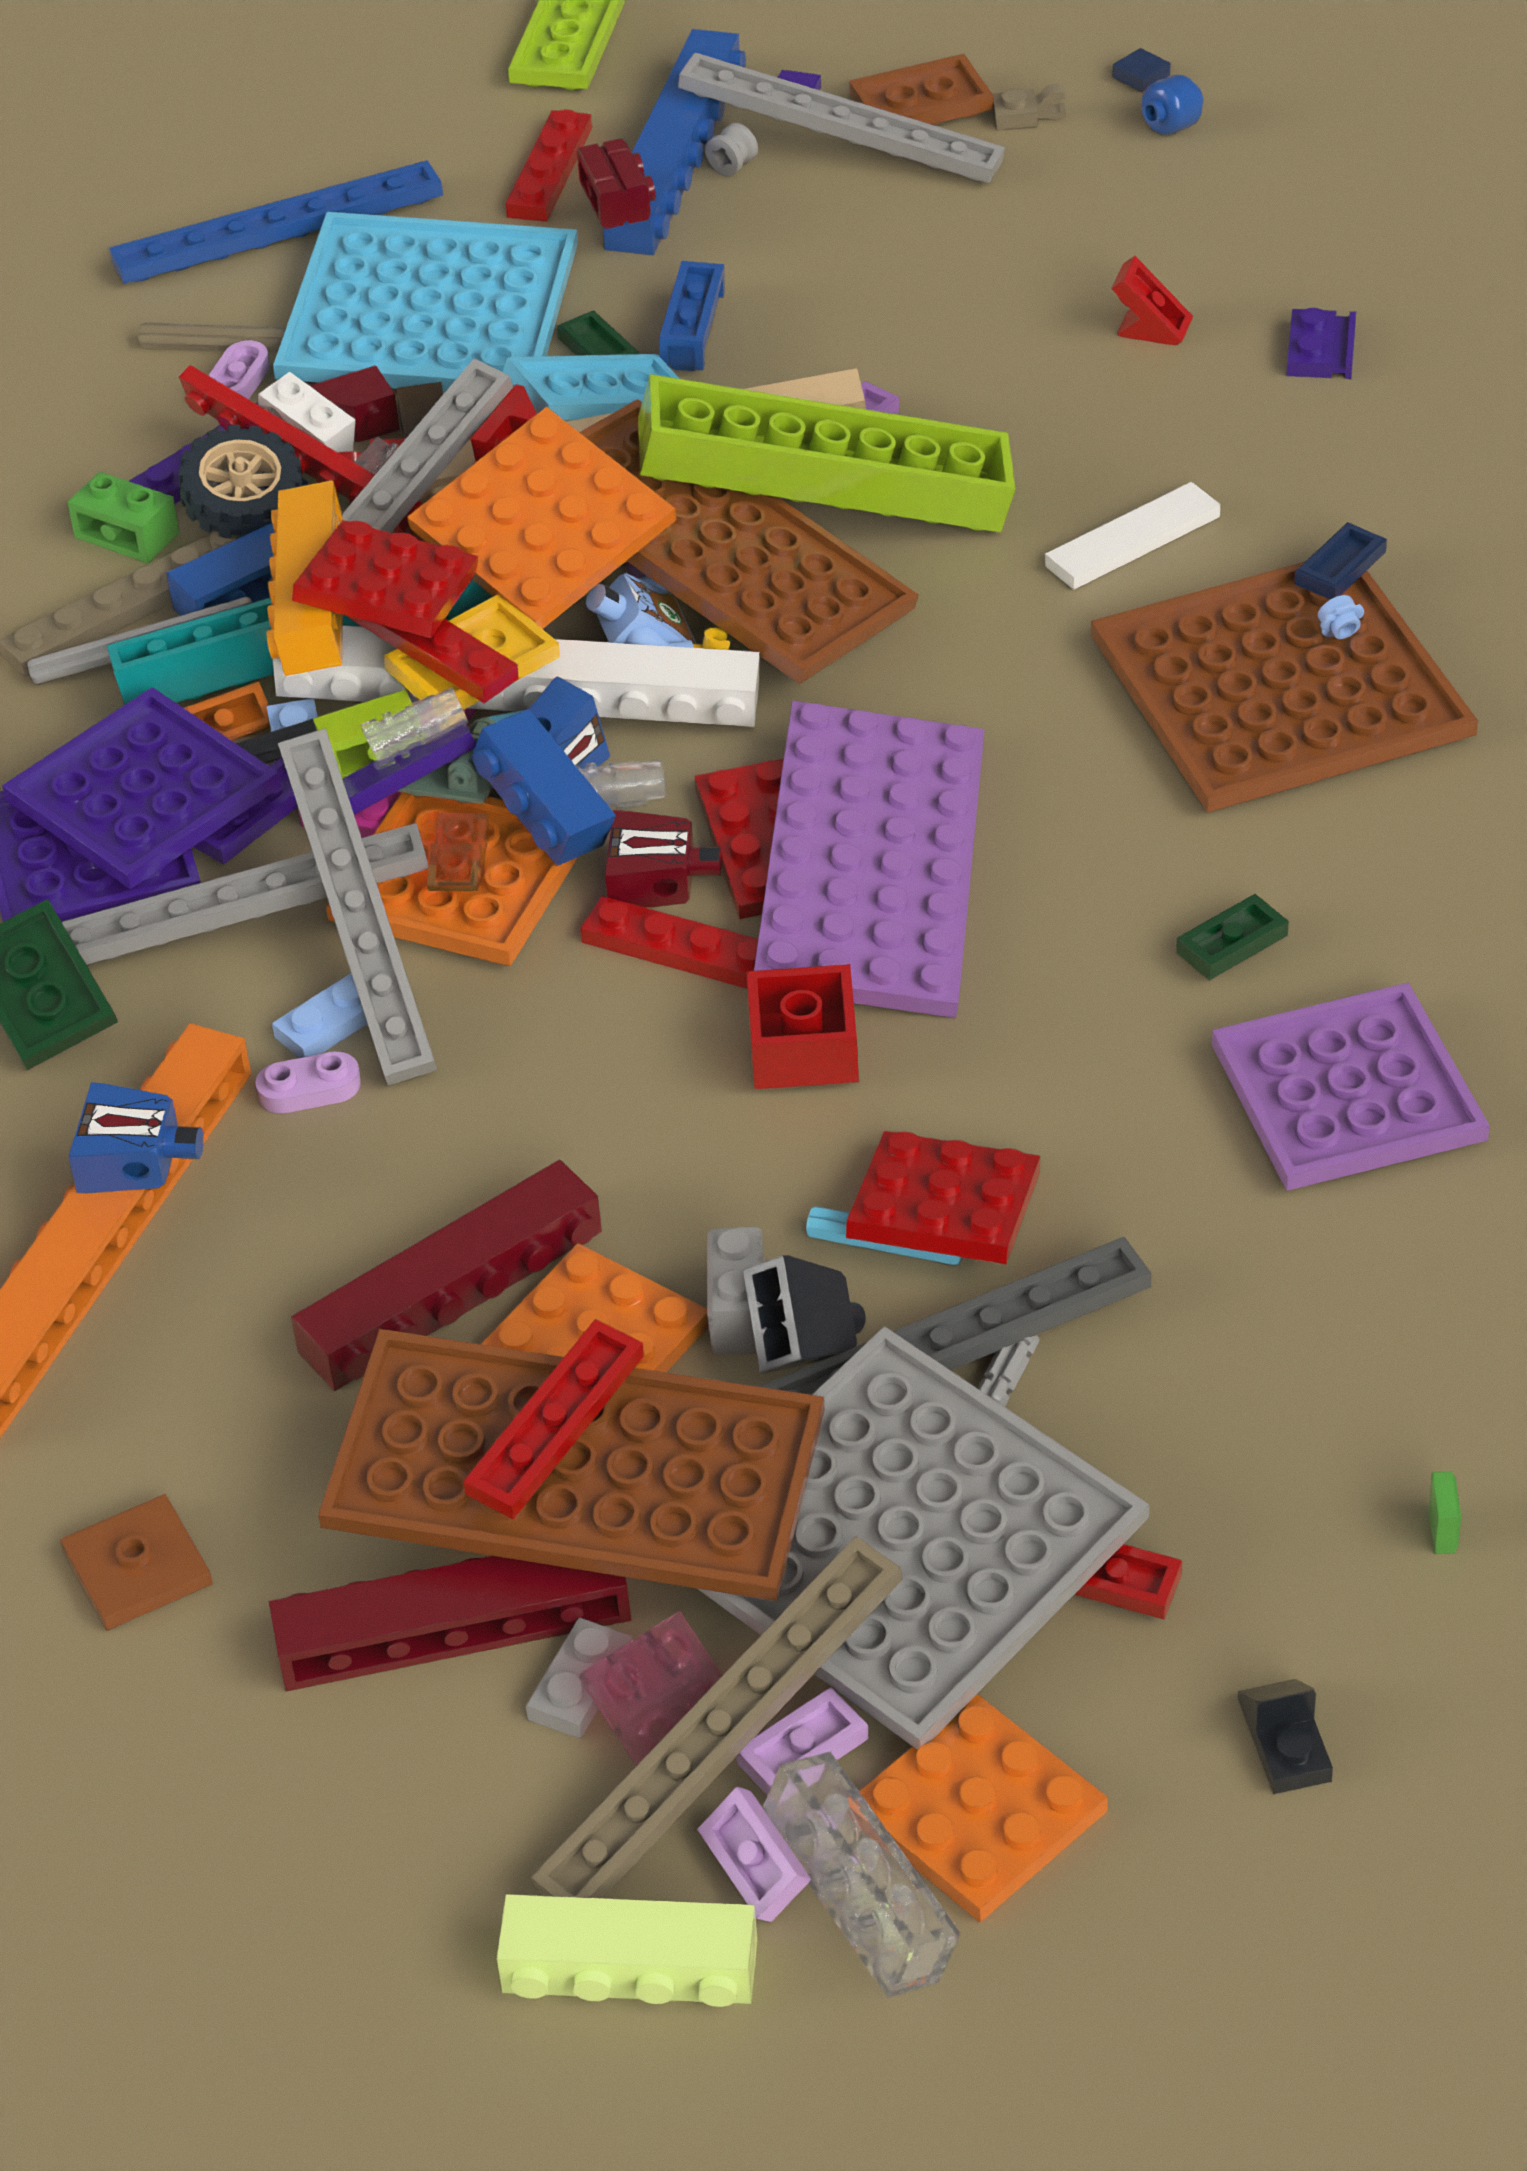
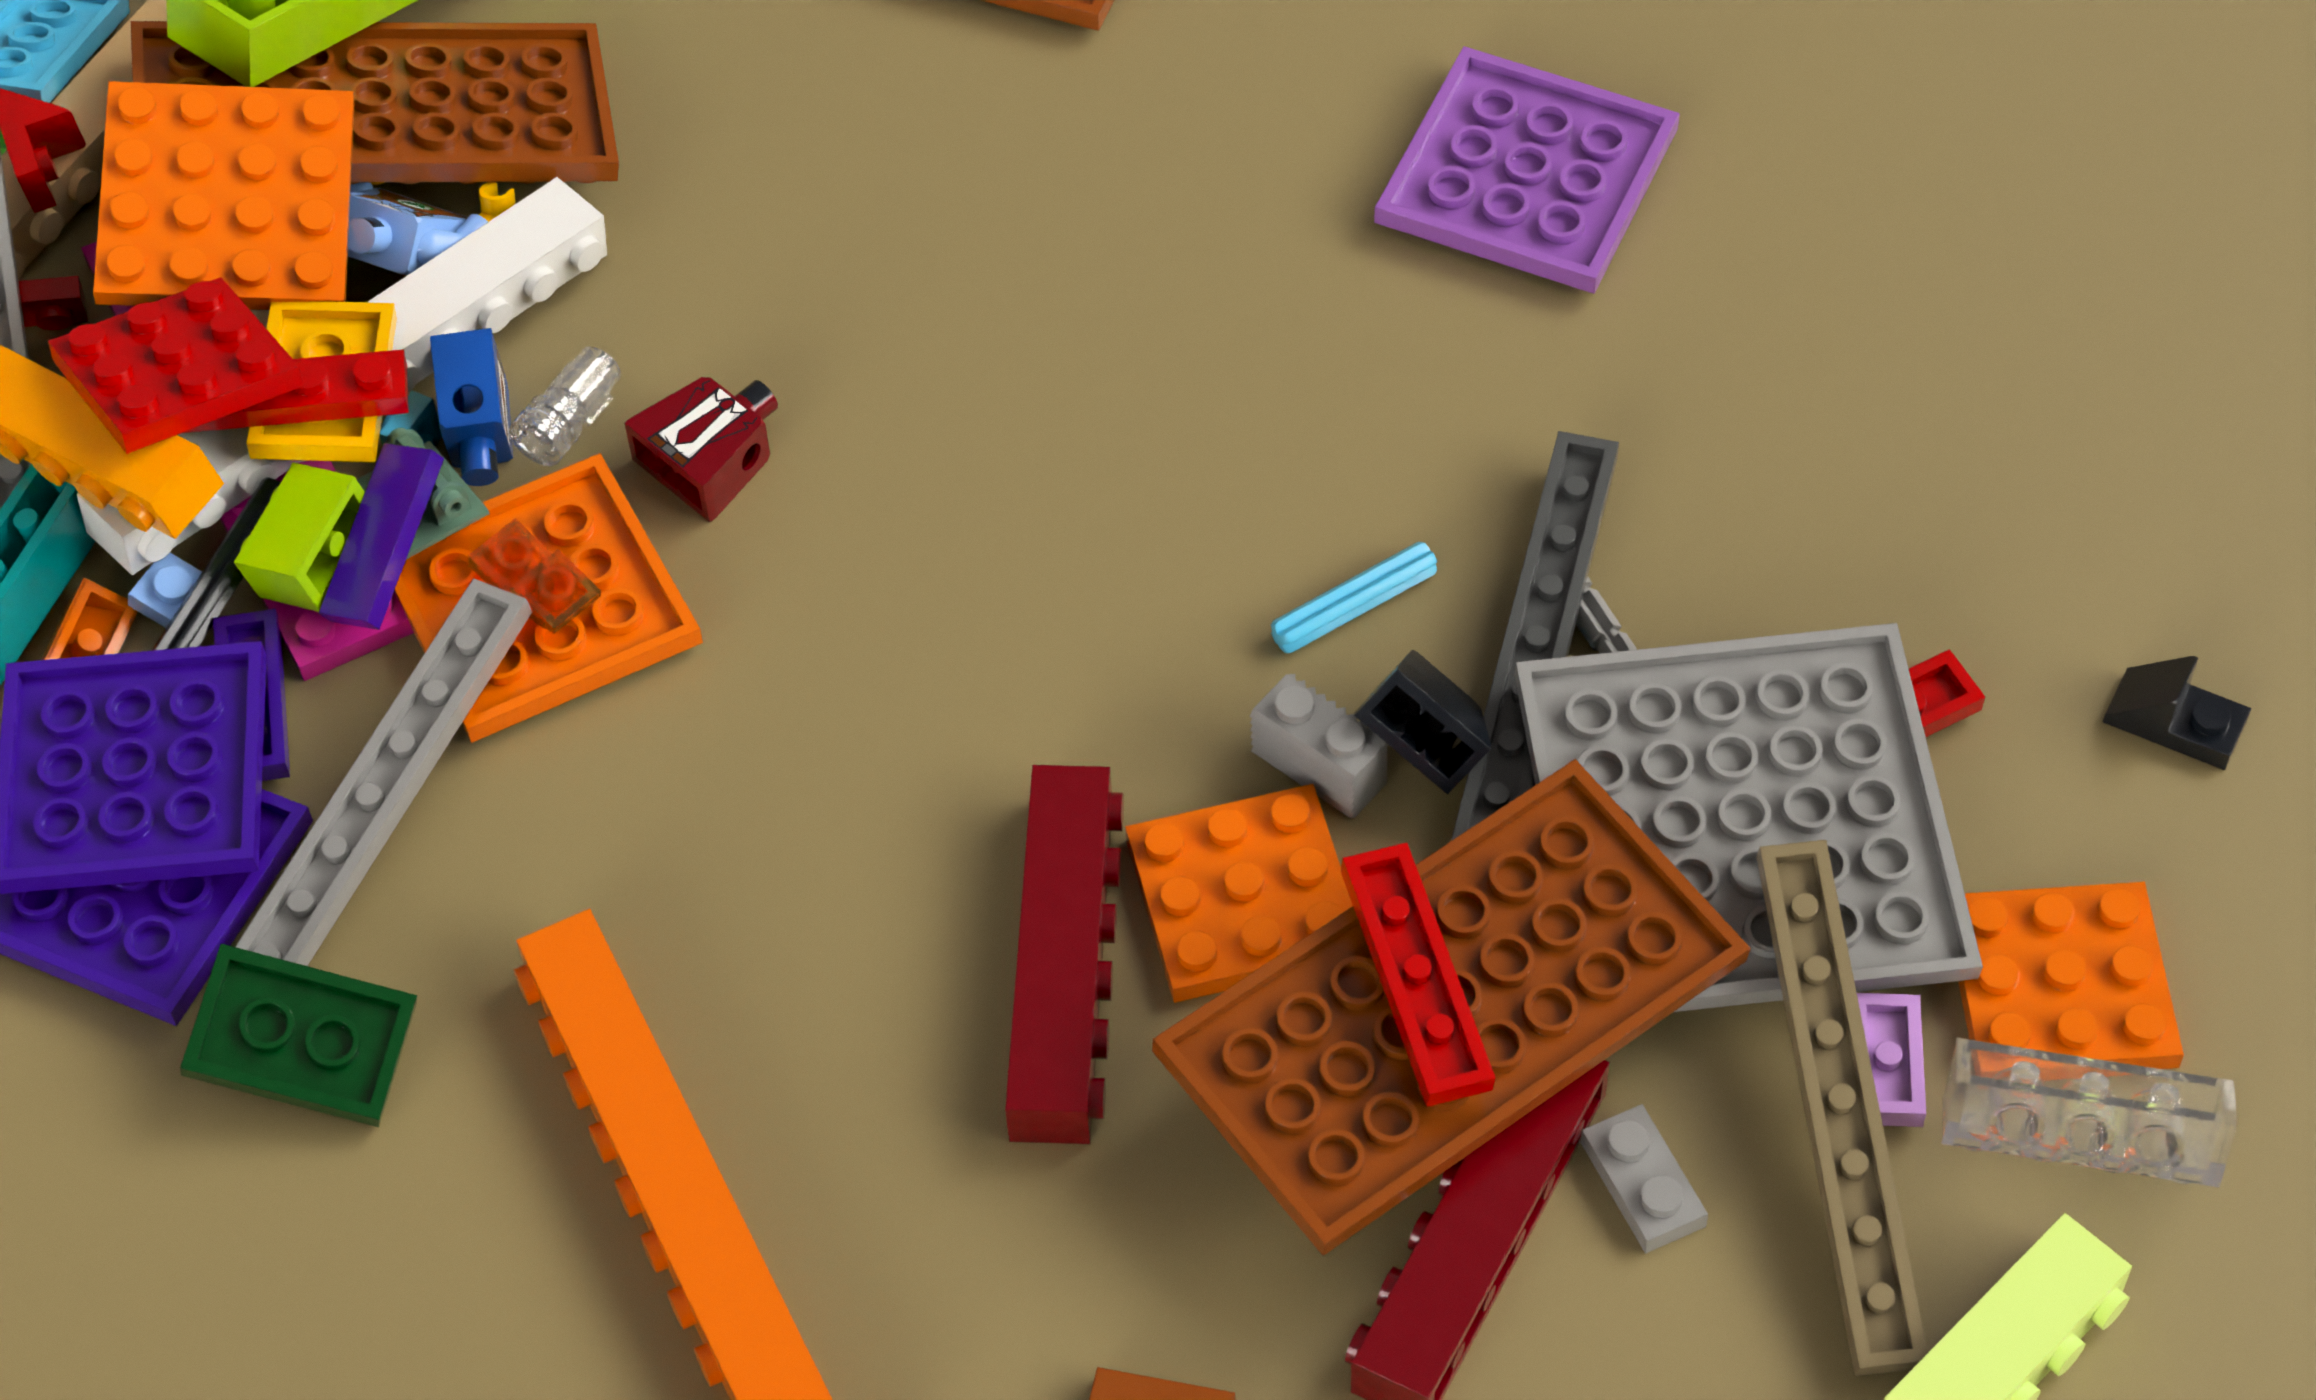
camera: 50 degrees left, 10 degrees up
(128, 1140) = (644, 1088): blue torso -> none
(308, 1082) = (675, 897): lavender plate -> none
(322, 1020) = (603, 828): light blue plate -> none
(357, 908) = (527, 696): light grey plate -> none
(414, 726) = (373, 482): clear axle -> none
(542, 787) = (549, 450): blue brick -> none
(651, 1683) = (1738, 1124): clear pink plate -> none
(670, 941) = (826, 496): red plate -> none
(741, 820) = (746, 332): red plate -> none
(754, 1854) = (1982, 1178): lavender plate -> none
(802, 1026) = (1058, 476): red brick -> none
(874, 854) = (891, 288): medium lavender plate -> none
(944, 1197) = (1365, 523): red plate -> none
(1232, 936) = (1272, 118): dark green plate -> none
(1444, 1512) = (2059, 444): bright green tile -> none

